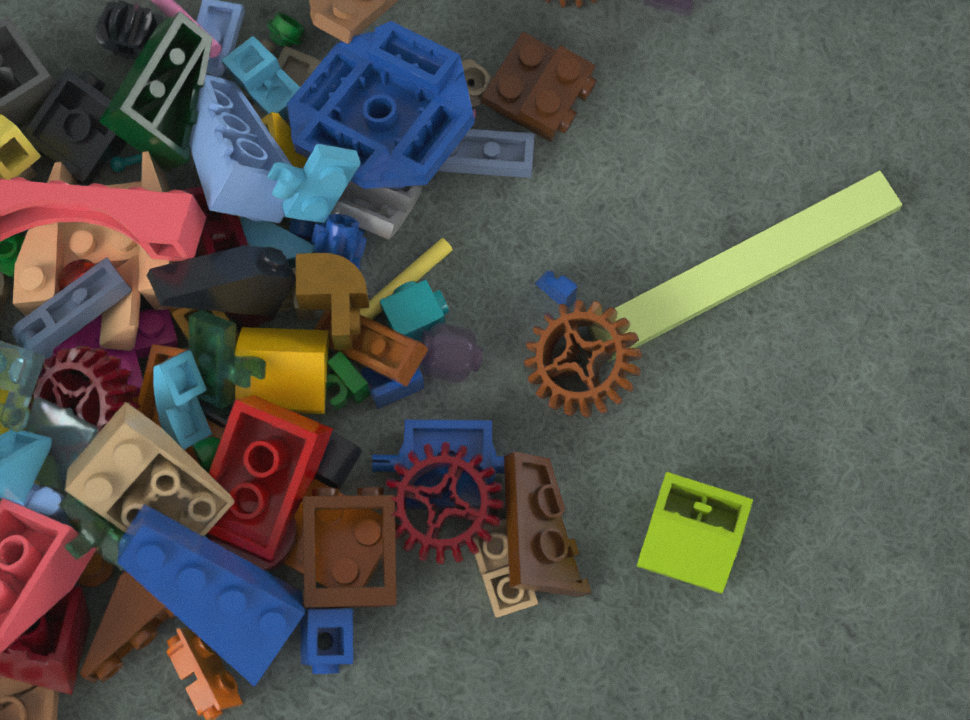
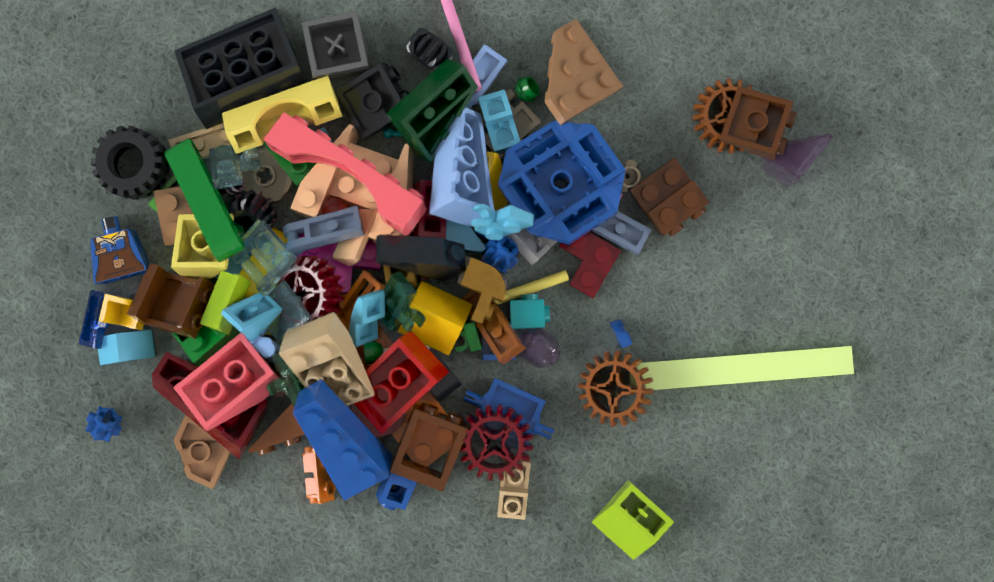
camera: 20 degrees right, 15 degrees up
(477, 205) = (596, 259): none -> dark red plate
(537, 539) = (541, 483): reddish brown wing -> none

